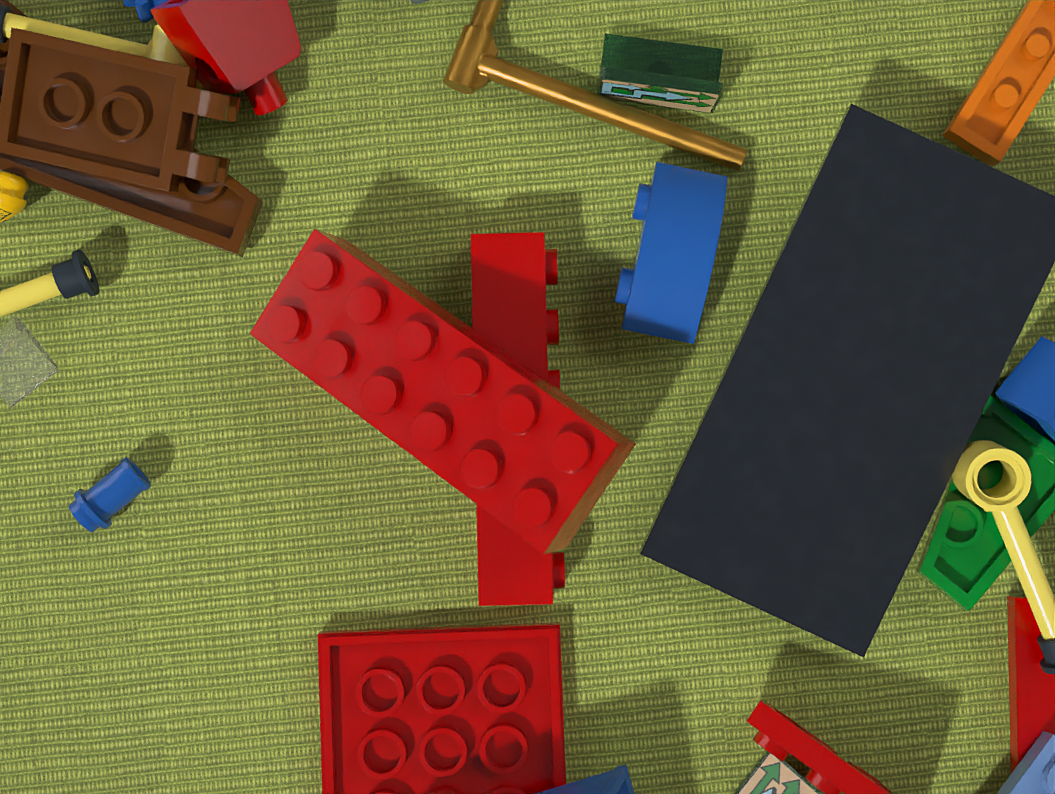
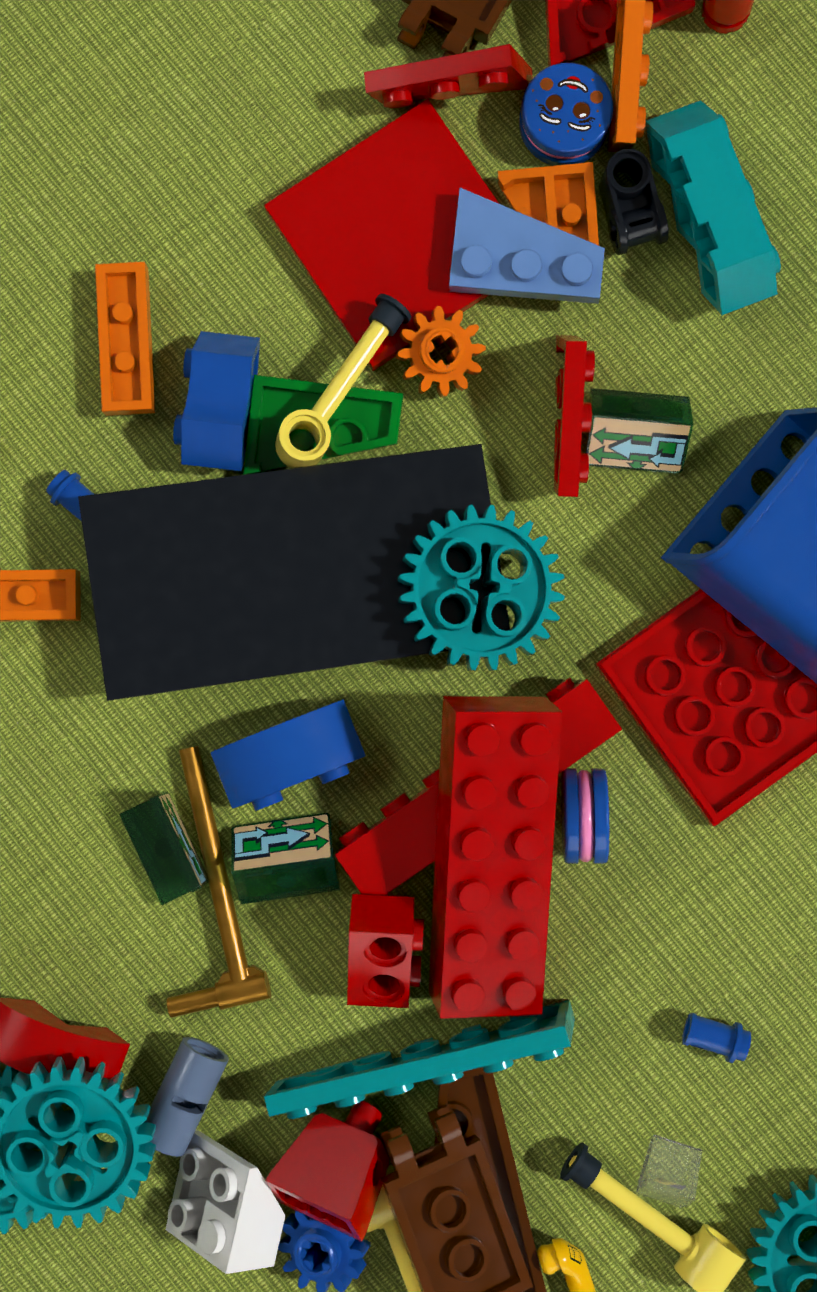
camera: 125 degrees left, 0 degrees up
(260, 247) = (474, 1048): none -> teal wing
(416, 509) = (585, 816): none -> blue head
(419, 216) = (381, 951): none -> red brick
(571, 182) = (284, 858): none -> panel
(681, 597) = (526, 596): none -> teal gear
(1004, 695) = (458, 359): none -> orange gear

